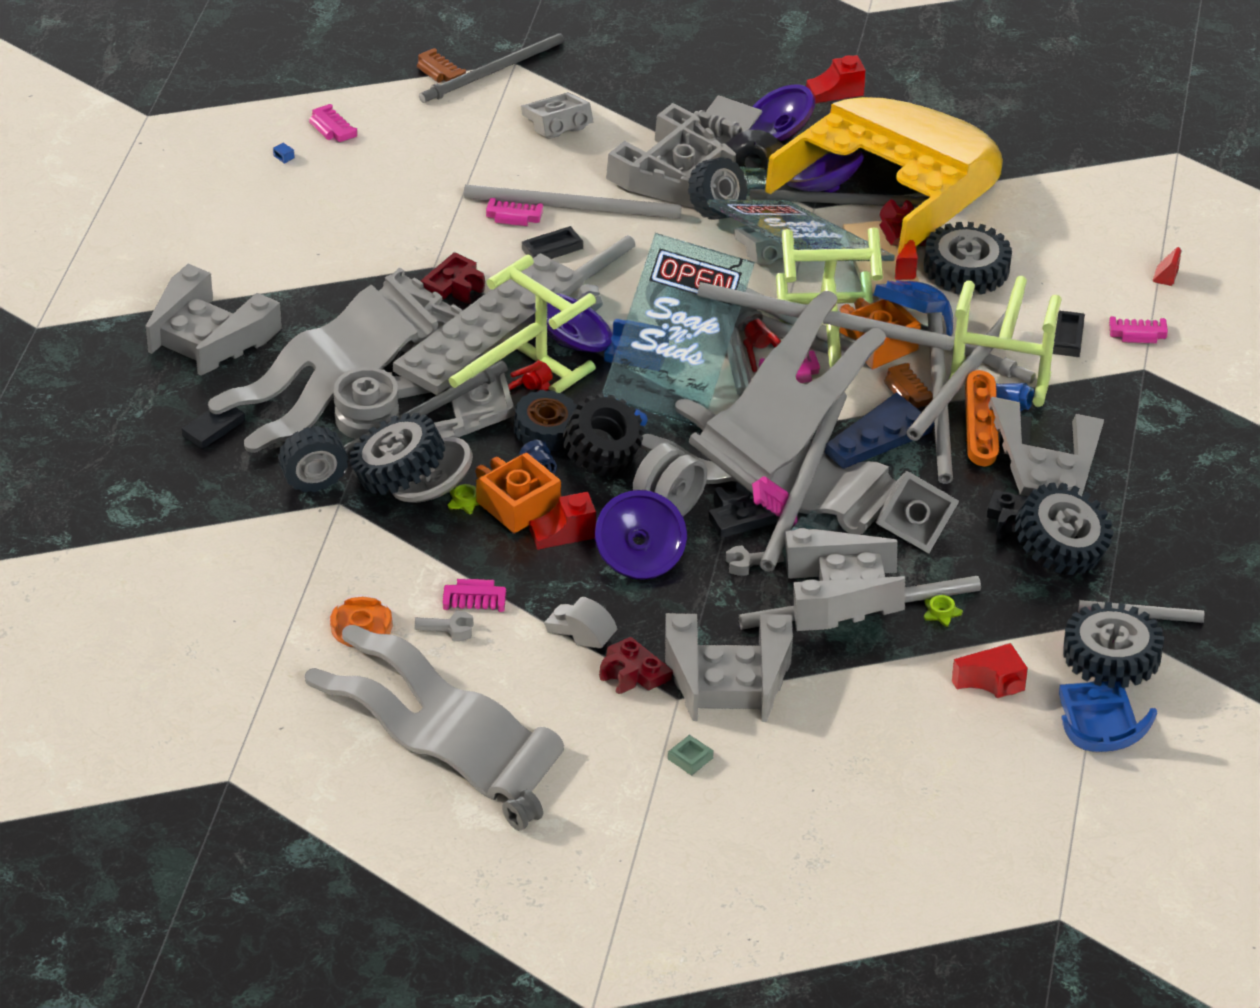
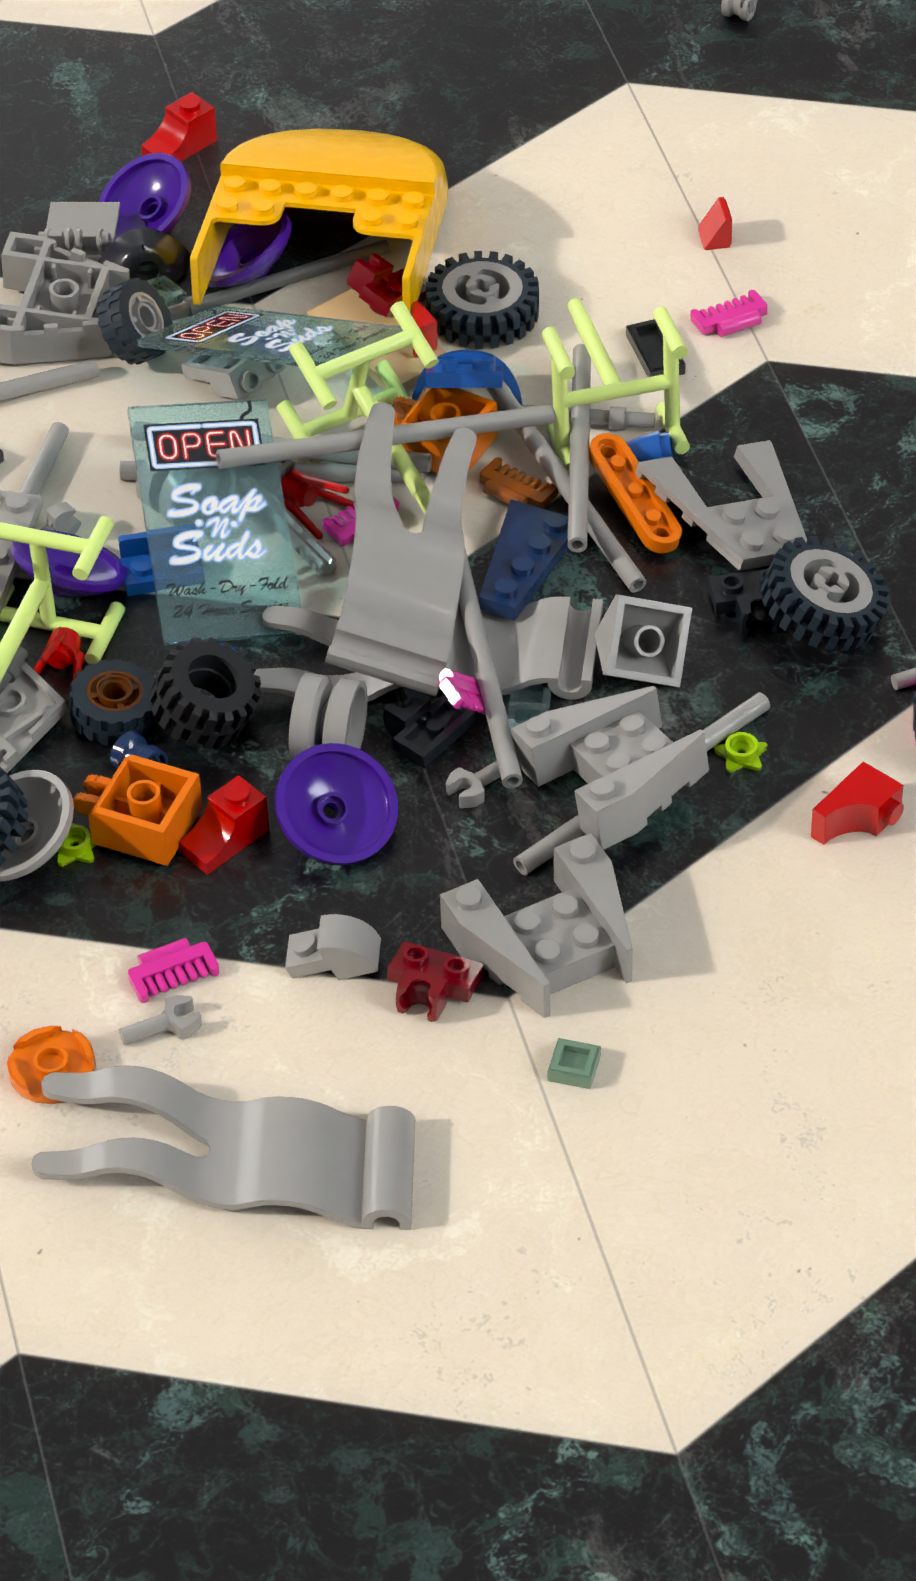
camera: 25 degrees left, 5 degrees up
(522, 810) = (425, 1226): dark grey wheel -> none

